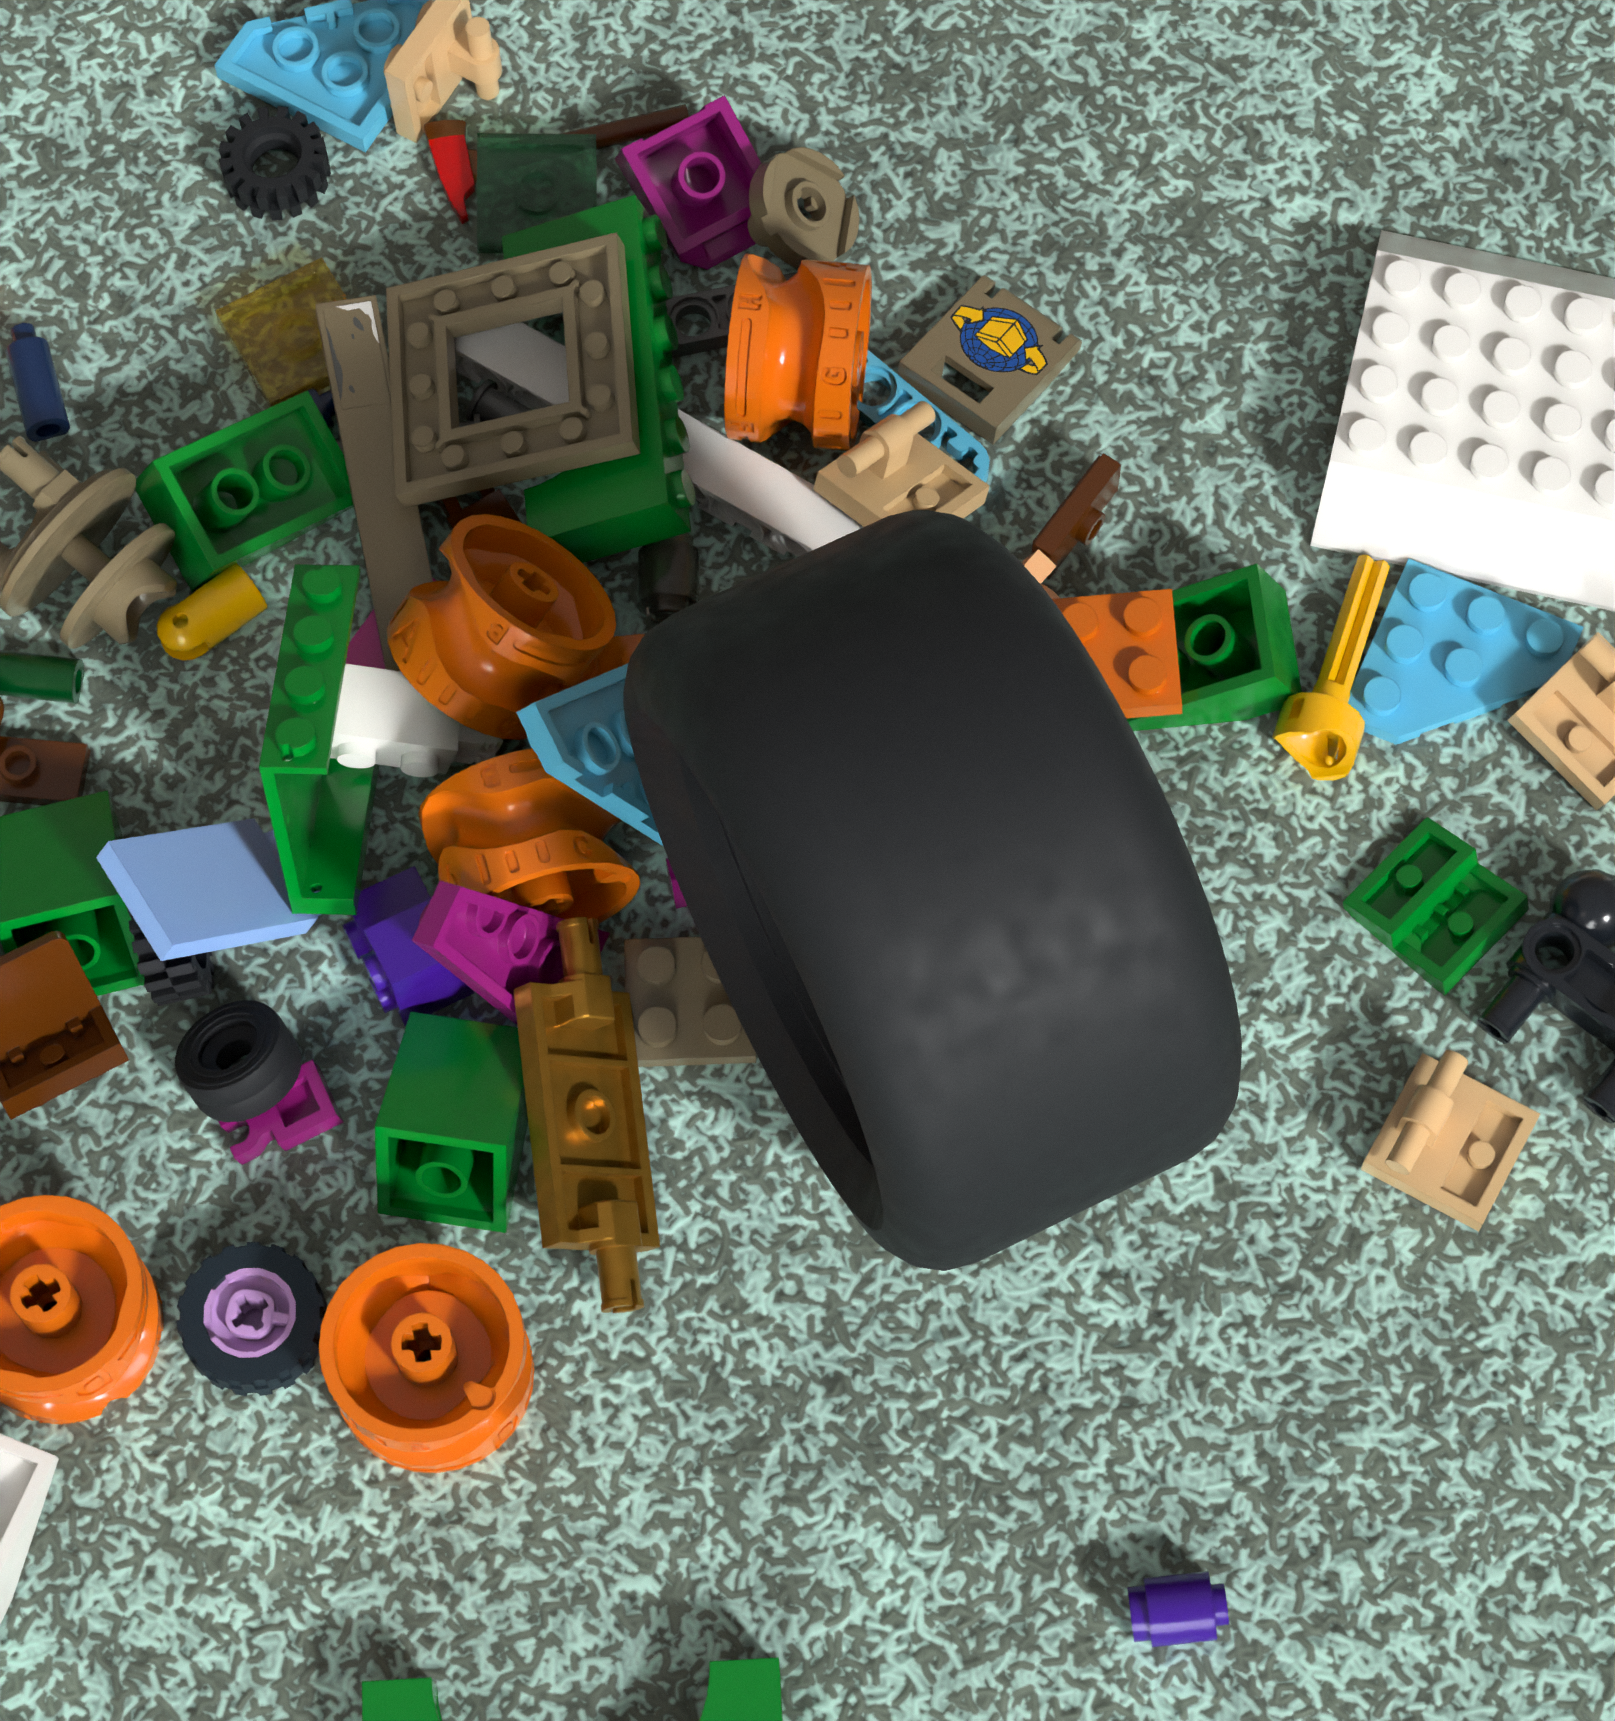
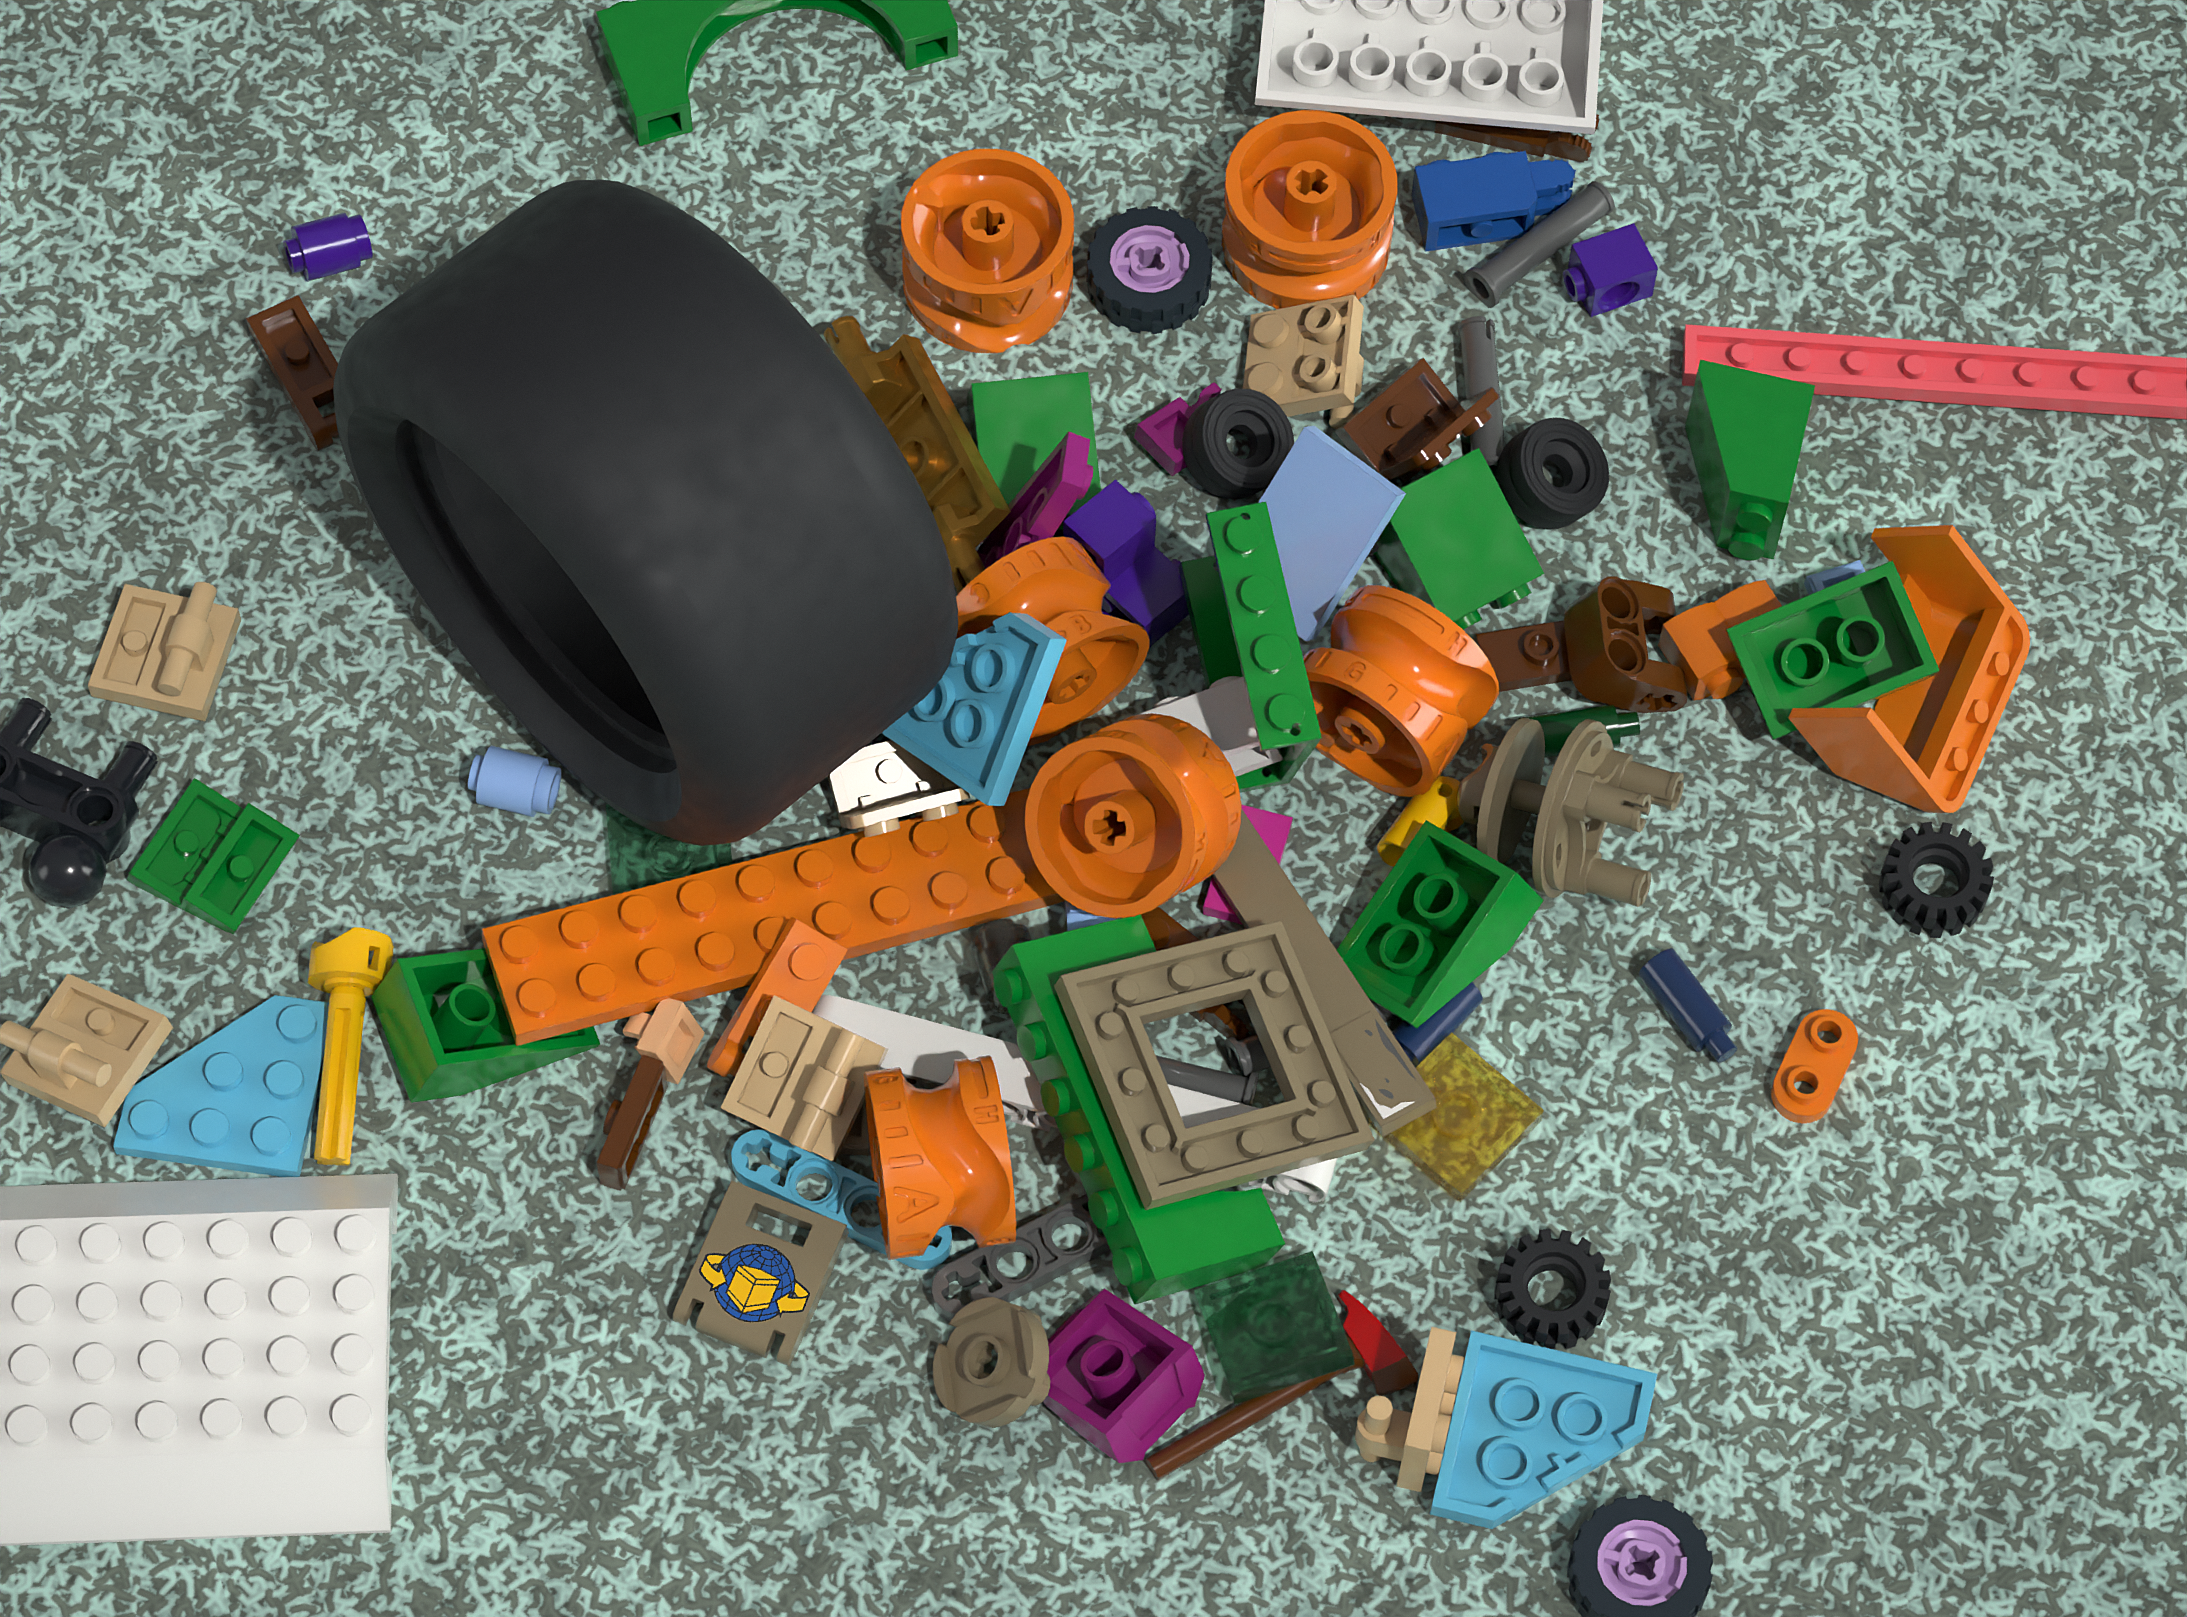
camera: 160 degrees right, 5 degrees down
(129, 1149) = (1308, 357): none -> tan plate
(188, 701) = (1397, 689): none -> orange piece
(1233, 1452) = (300, 364): none -> reddish brown plate

